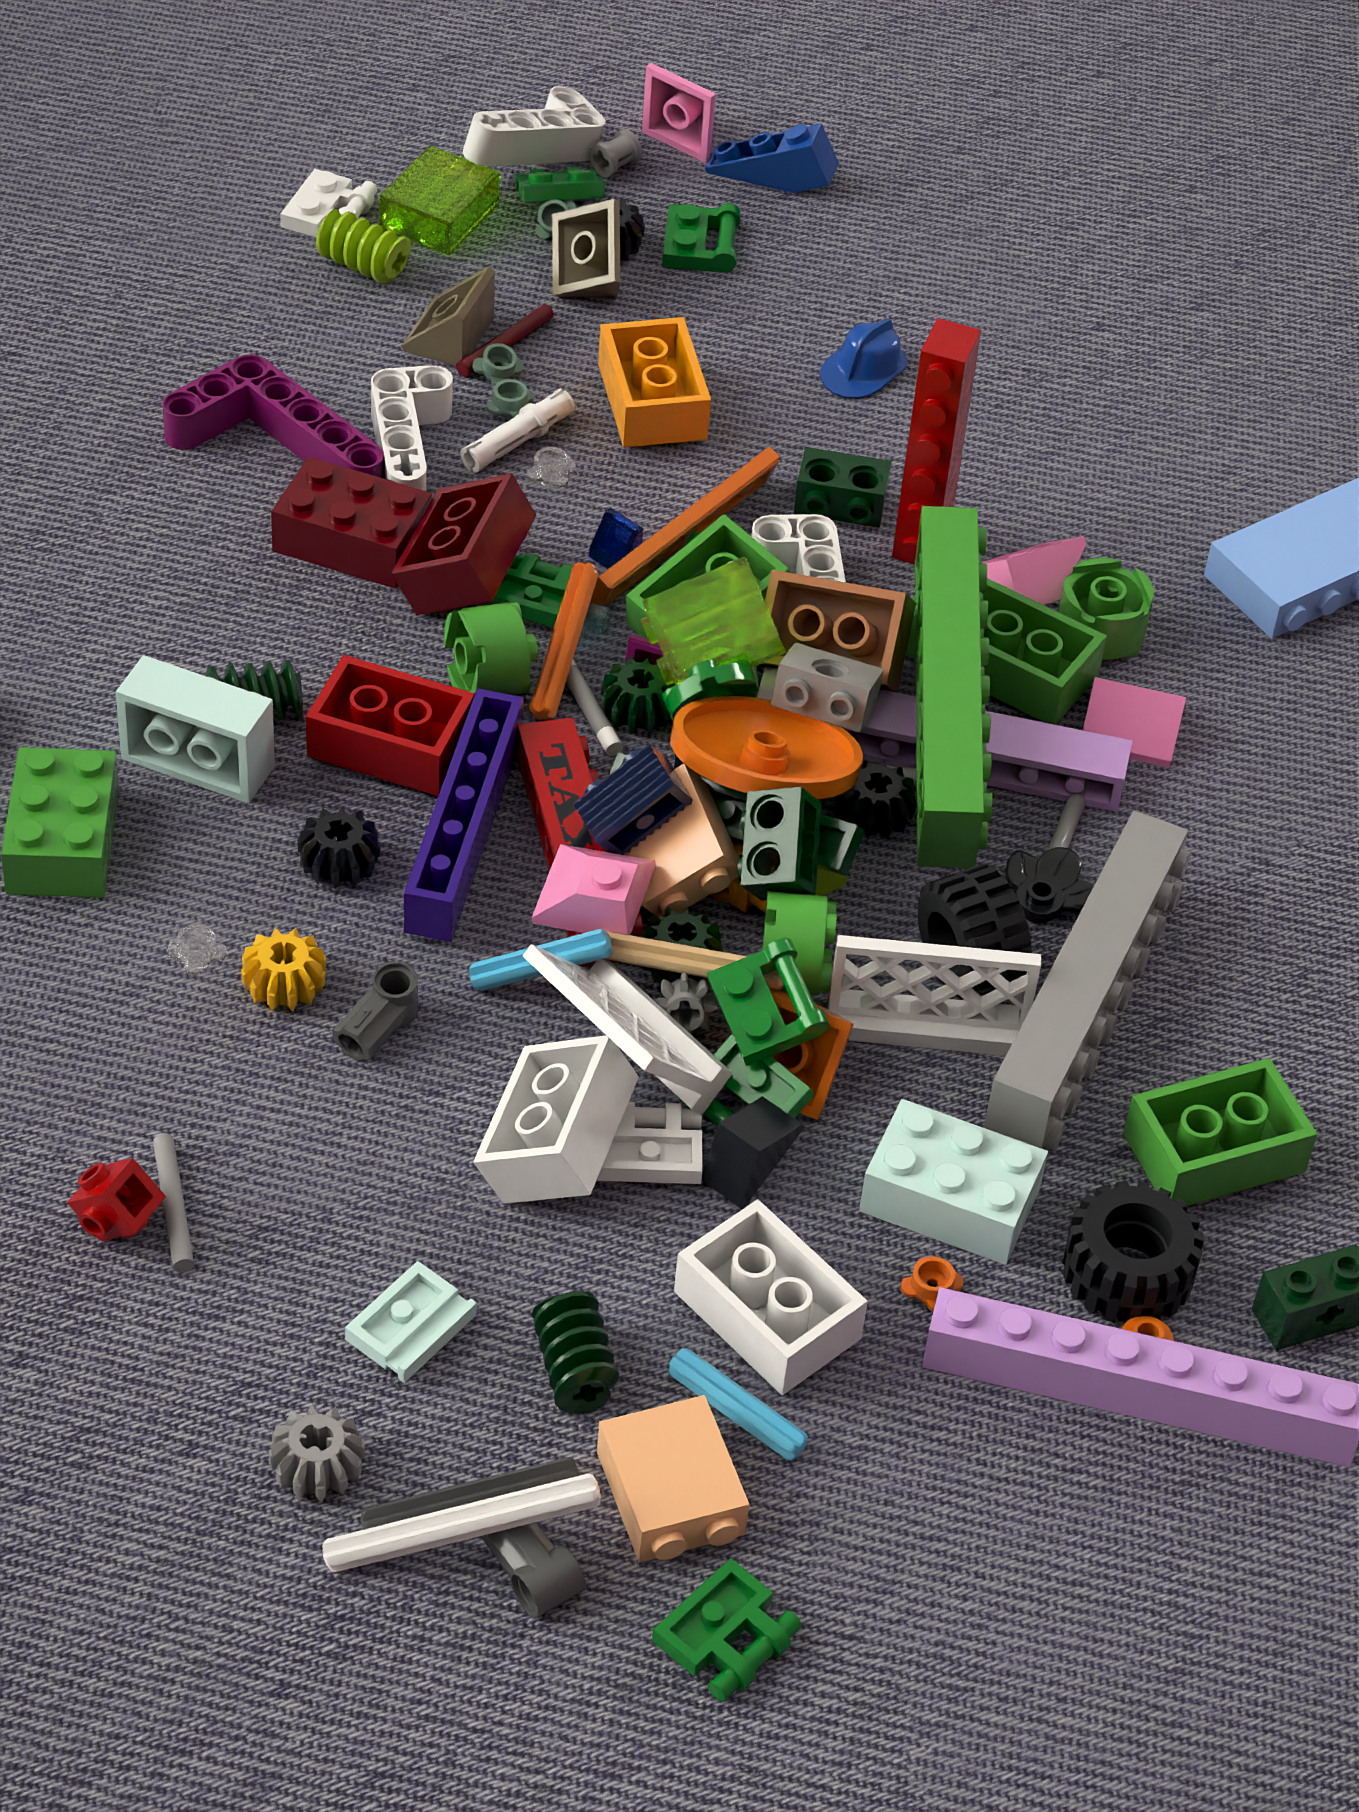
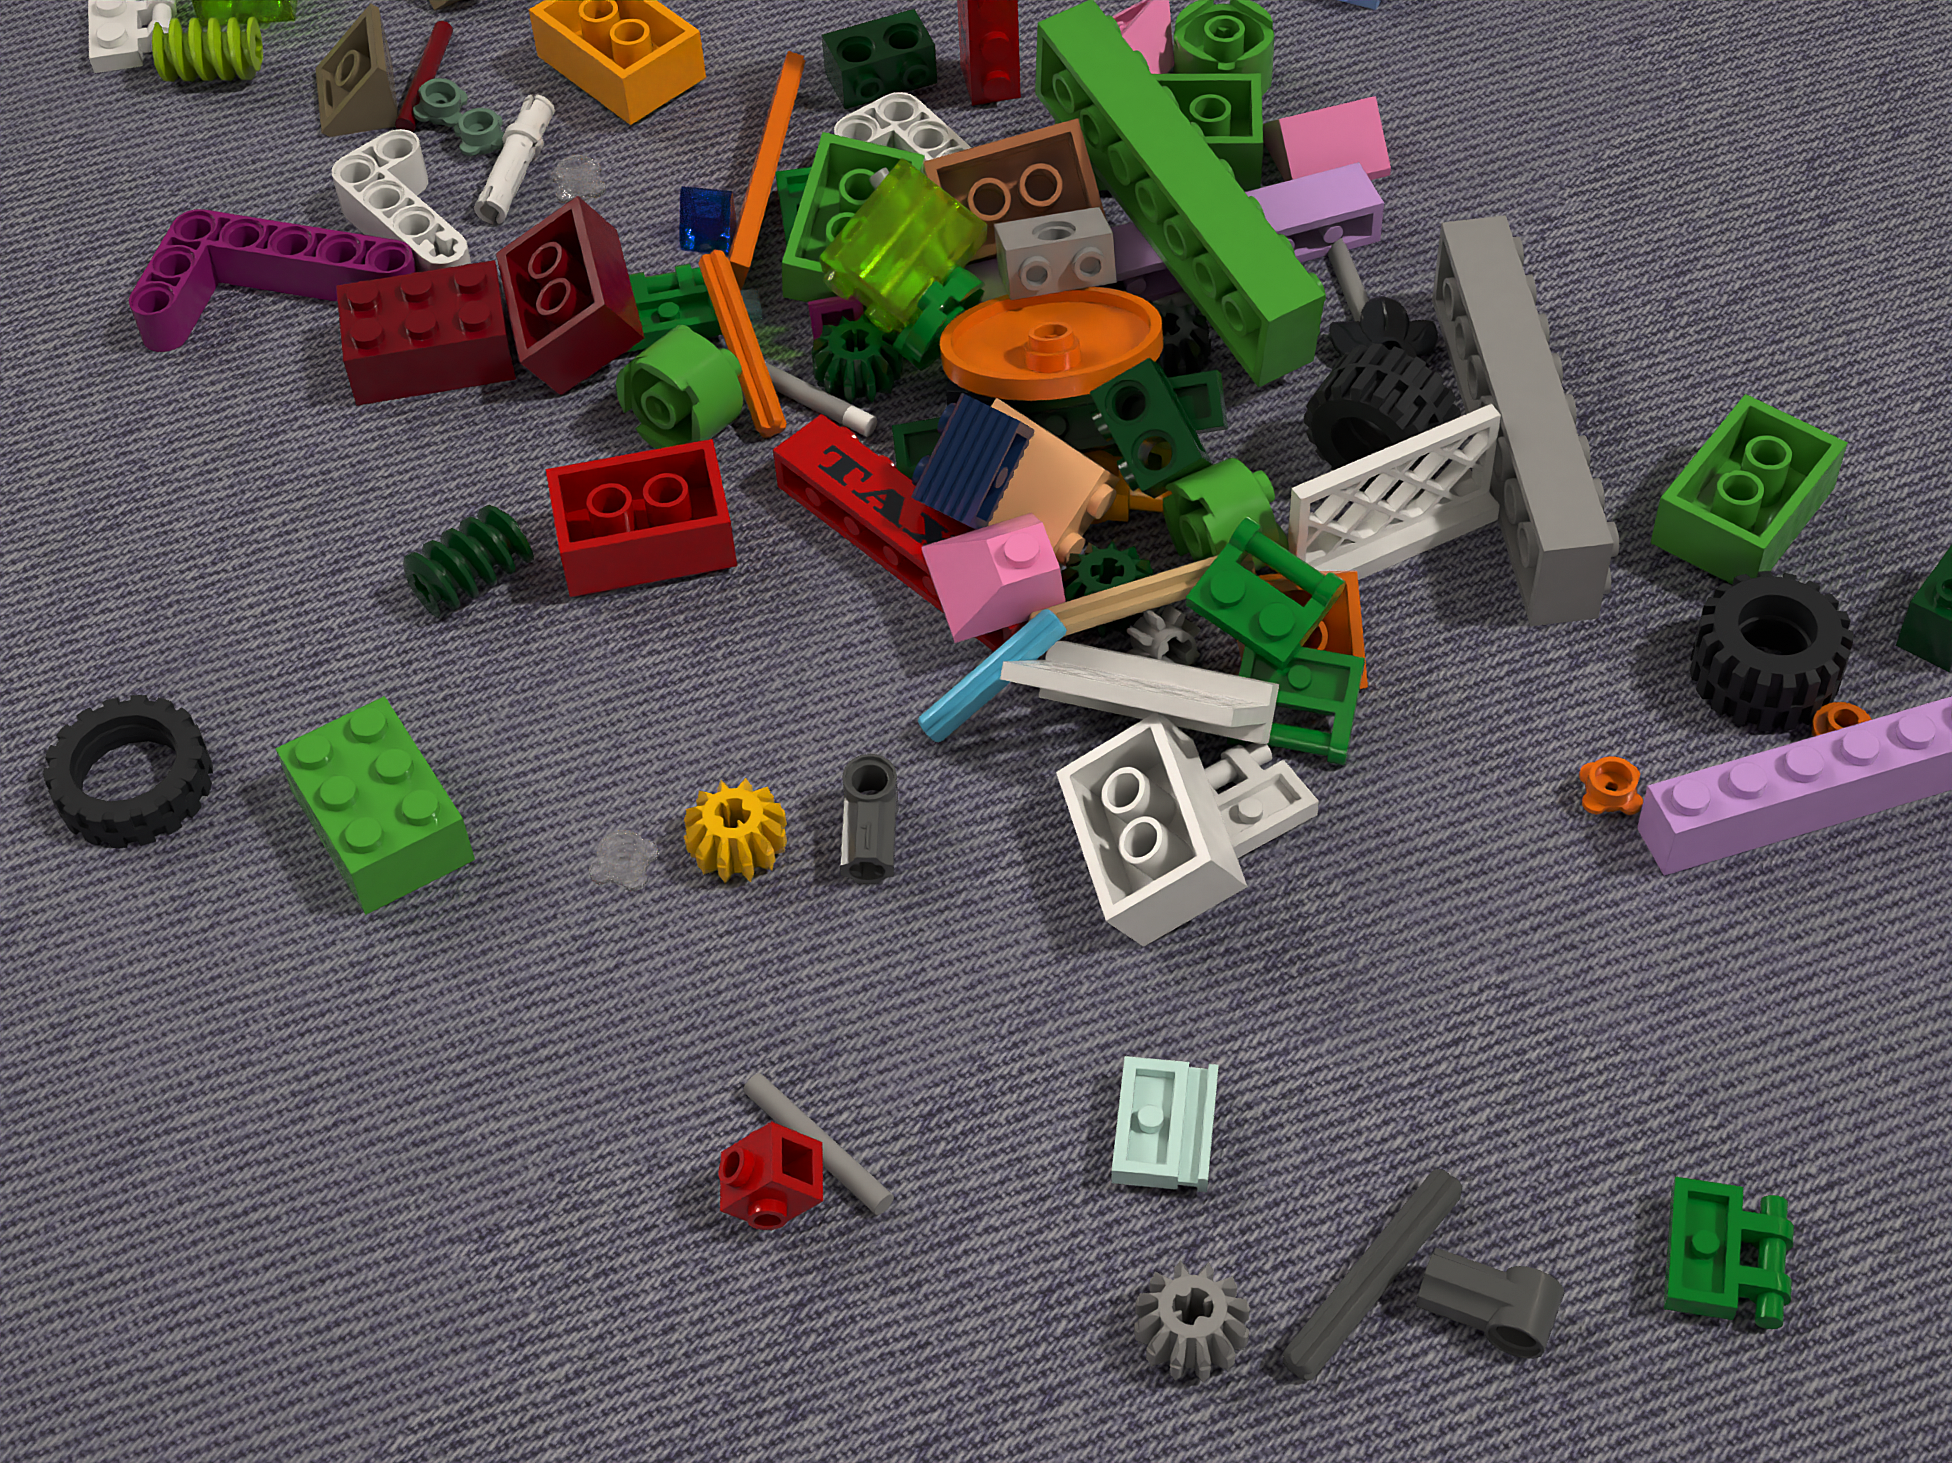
camera: 25 degrees left, 5 degrees up
(196, 728) = (446, 627): light aqua brick -> none
(339, 847) = (686, 672): black gear -> none
(461, 1522) = (1406, 1306): white axle -> none
(462, 816) = (793, 572): dark purple brick -> none
(575, 1351) = (1352, 1057): dark green piece -> none
(672, 1479) = (1553, 1131): light nougat brick -> none
(738, 1404) = (1539, 1016): medium azure axle -> none
(748, 1149) = (1348, 754): black slope -> none
(770, 1296) = (1492, 889): white brick -> none
(953, 1181) = (1554, 675): light aqua brick -> none

